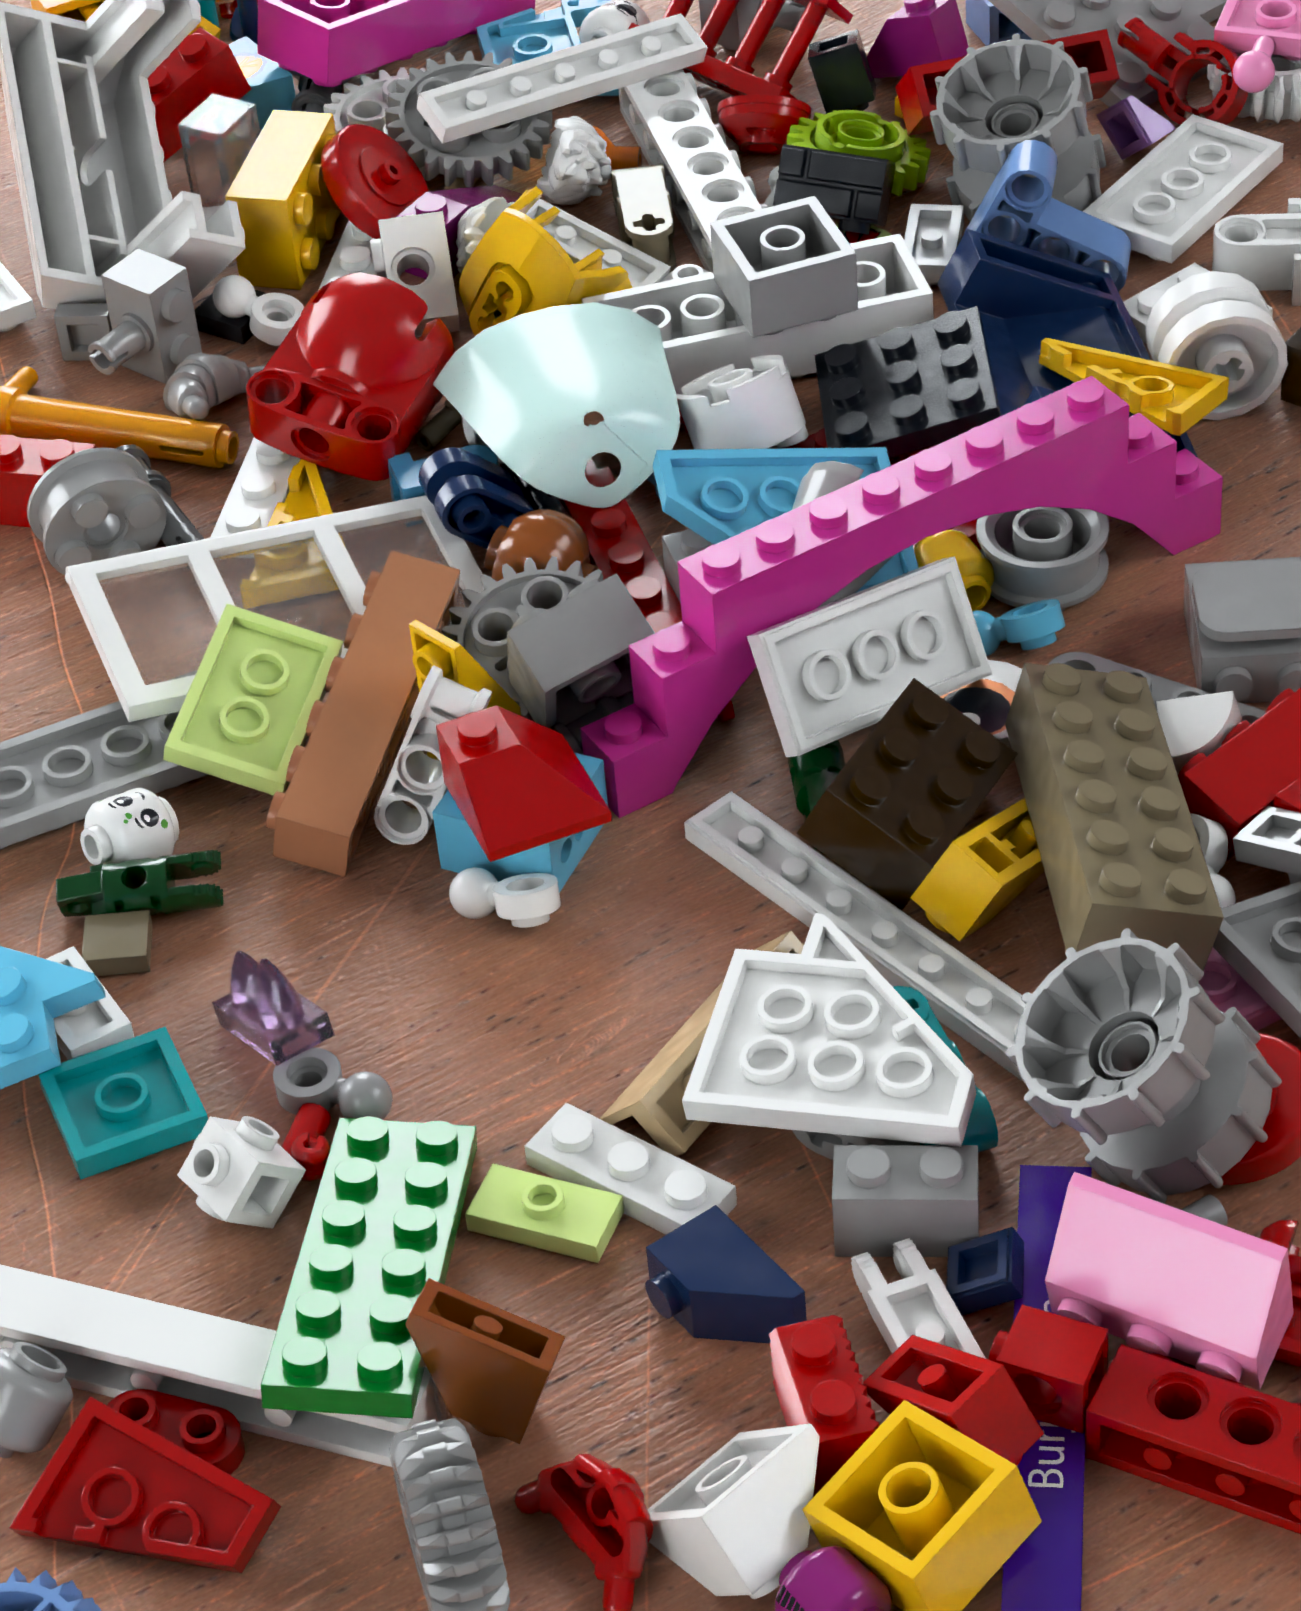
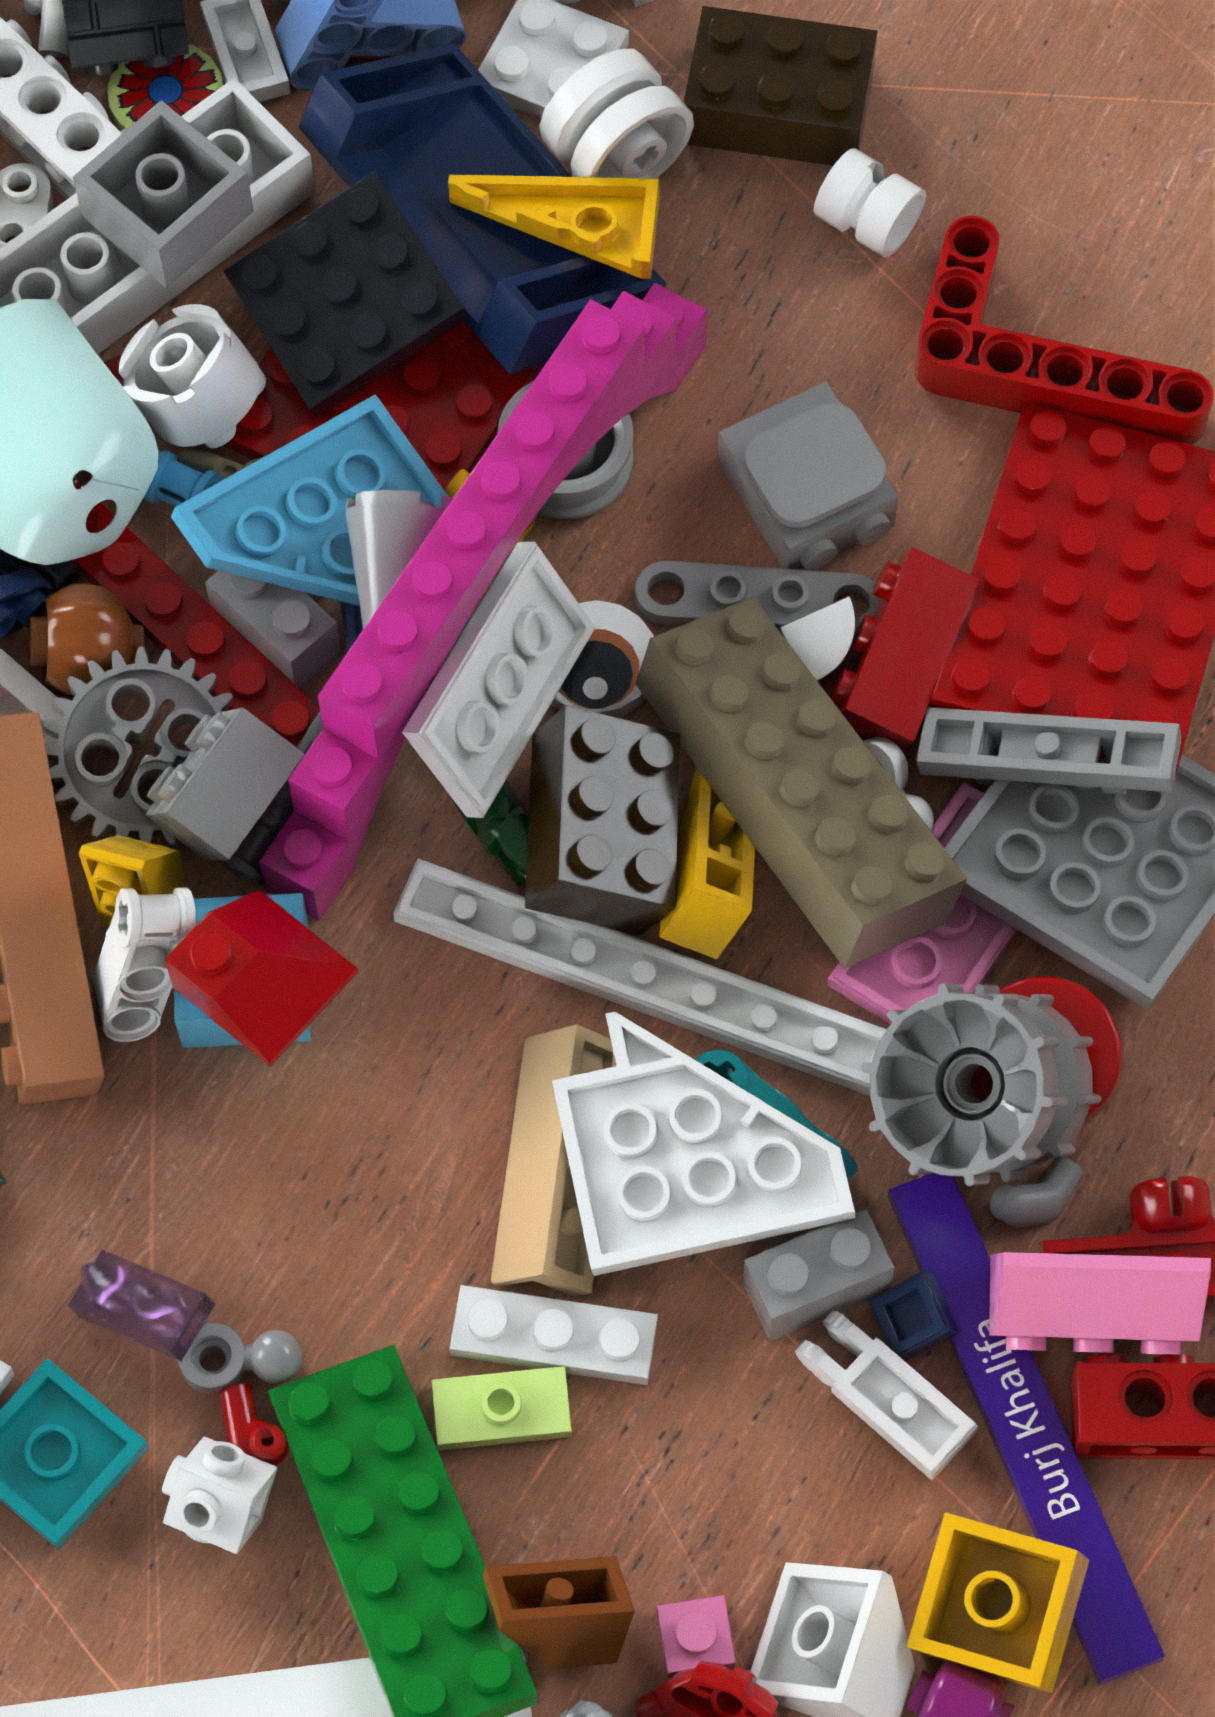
camera: 30 degrees left, 25 degrees up
(520, 898) = (296, 1074): white plate -> none
(619, 1443) = (695, 1633): none -> bright pink plate
(720, 1282) = (704, 1426): dark blue slope -> none
(823, 1388) = (854, 1514): red brick -> none
(959, 1391) = (969, 1481): red slope -> none
(1029, 624) = (591, 544): medium azure plate -> none
(1053, 1364) = (1028, 1408): red brick -> none

